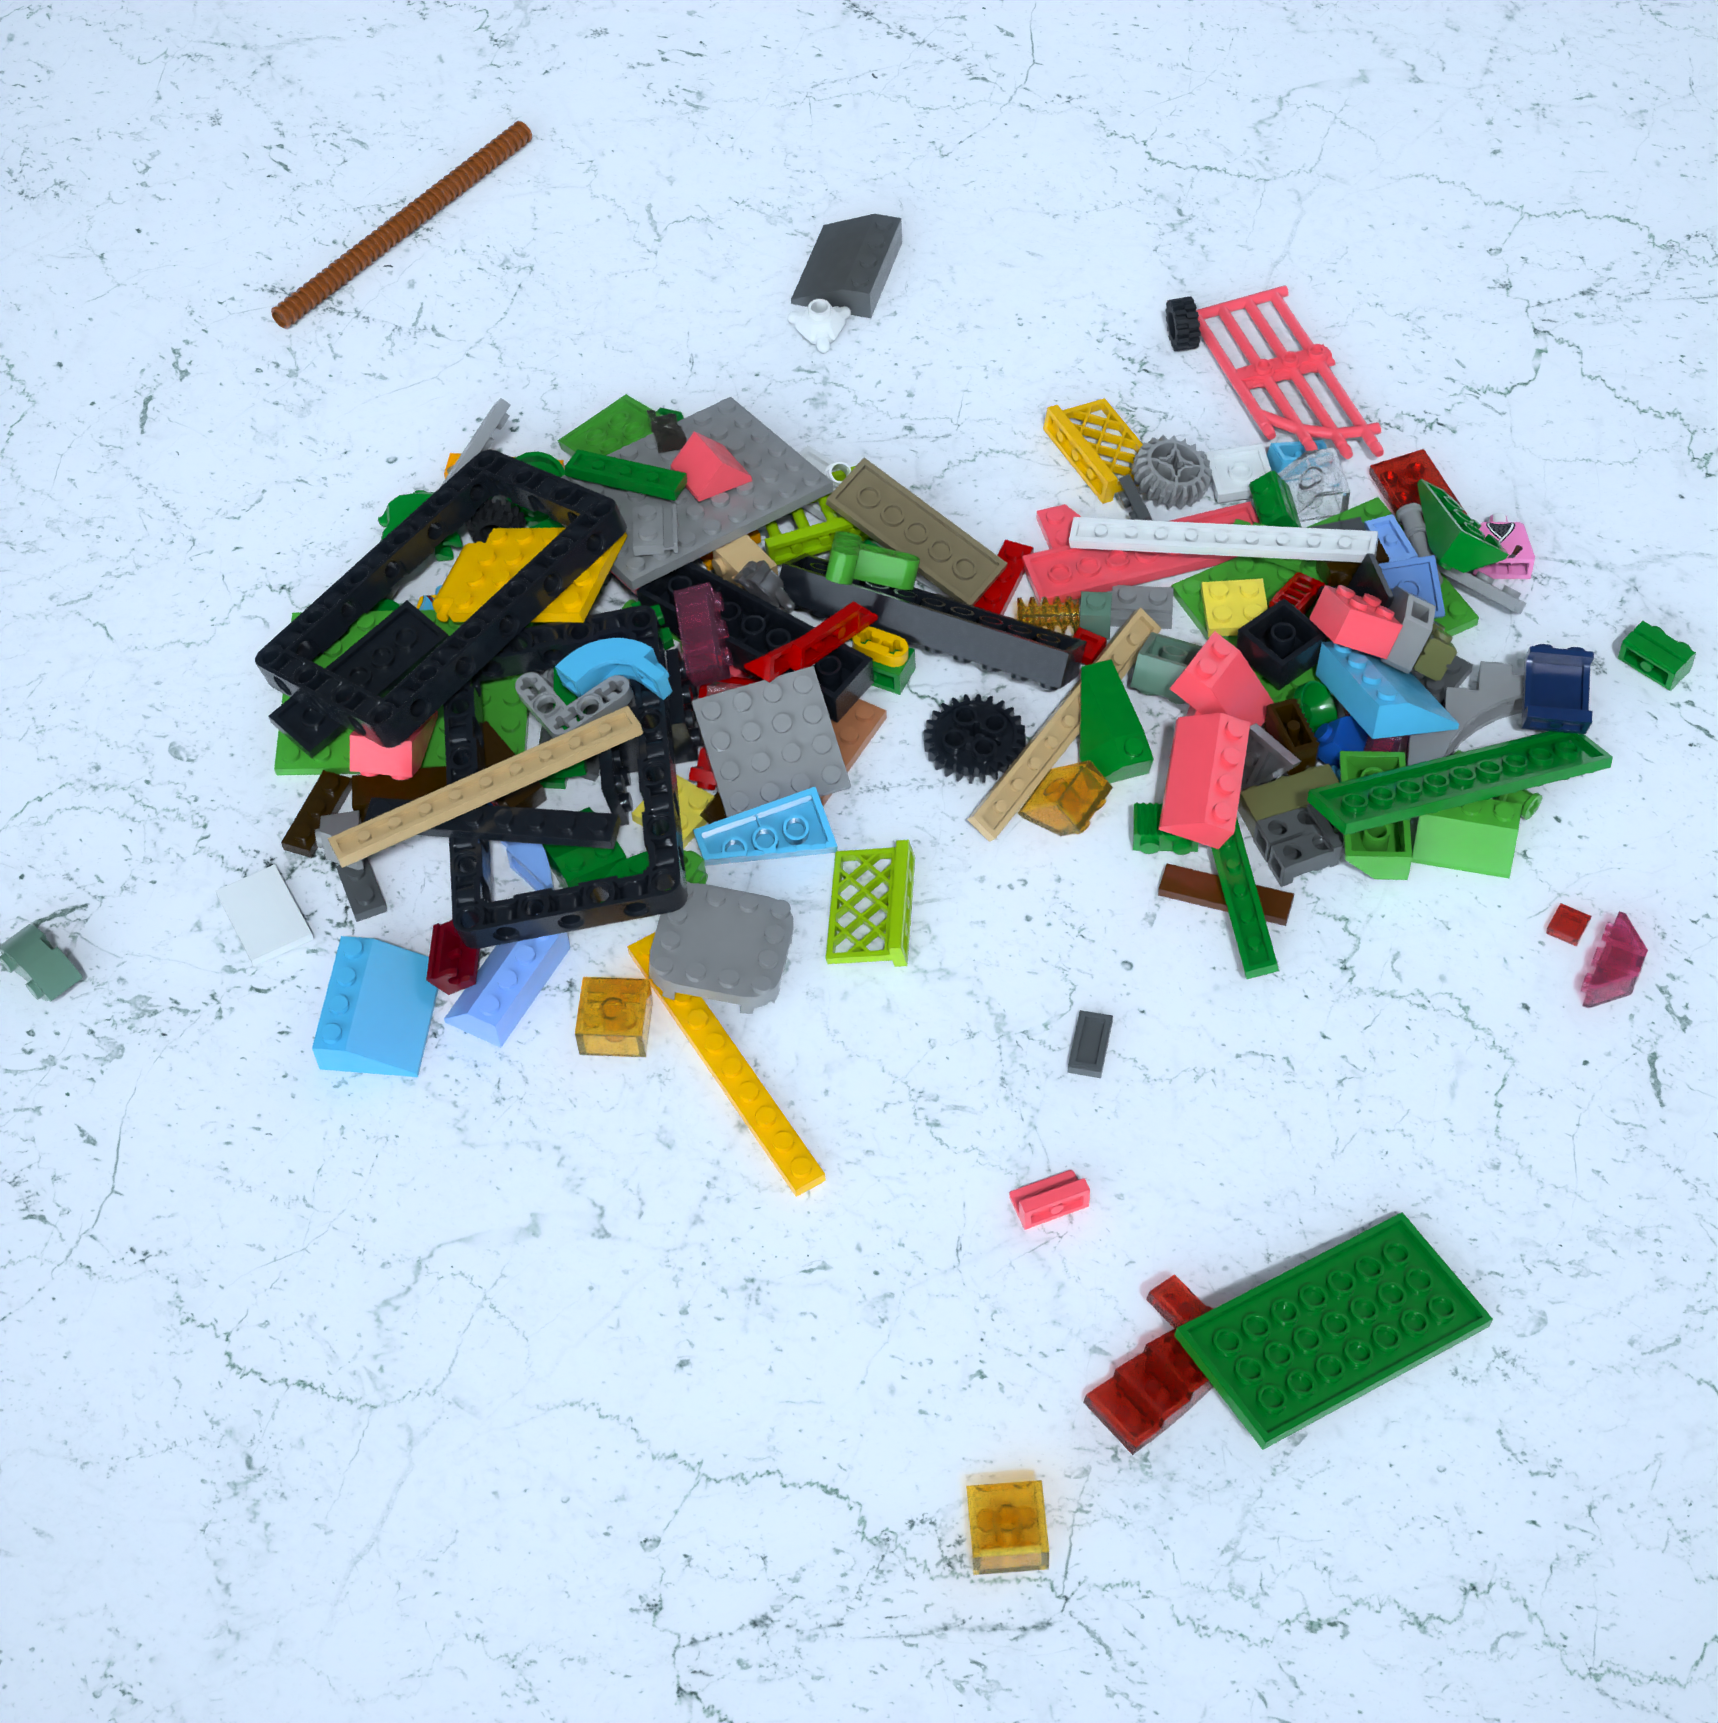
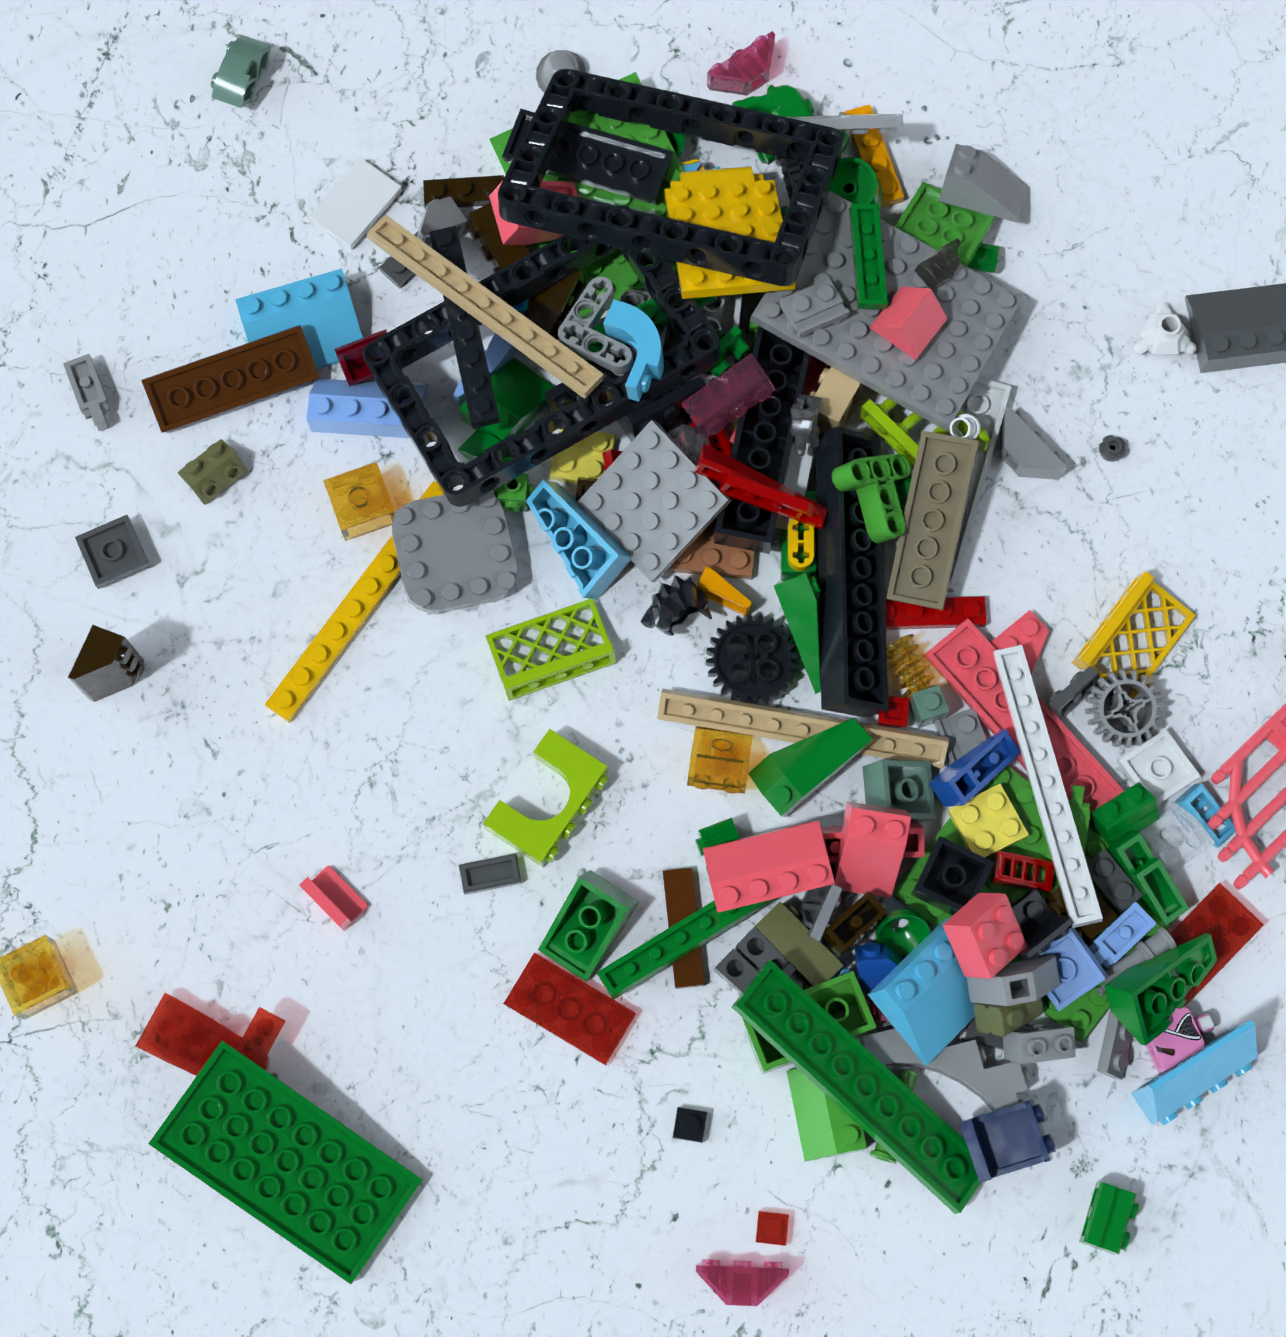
camera: 65 degrees right, 20 degrees up
(240, 686) = (556, 61): none -> light grey hat
(320, 1246) = (88, 390): none -> light grey hinge
(346, 531) = (745, 69): none -> clear pink slope
(398, 1092) = (230, 378): none -> reddish brown plate
(492, 1151) = (213, 471): none -> olive bracket
(530, 1285) = (112, 551): none -> dark grey plate
(589, 398) = (982, 185): none -> light grey slope
(671, 1309) = (105, 664): none -> dark brown slope
(885, 774) = (674, 604): none -> black hair
(887, 452) = (1027, 450): none -> light grey slope
(890, 737) = (723, 593): none -> light orange slope
(910, 400) = (1109, 454): none -> dark grey plate
(948, 667) = (801, 609): none -> green wedge
(1027, 921) = (540, 838): none -> lime arch
(1179, 599) = (974, 770): none -> blue slope
(1189, 970) = (587, 924): none -> green slope
(1268, 1021) = (569, 1009): none -> clear red plate
(1341, 504) = (1149, 876): none -> green slope
(1435, 958) = (689, 1125): none -> black plate
(1471, 639) = (1040, 1043): none -> light grey brick
(1554, 566) = (1198, 1073): none -> medium azure slope

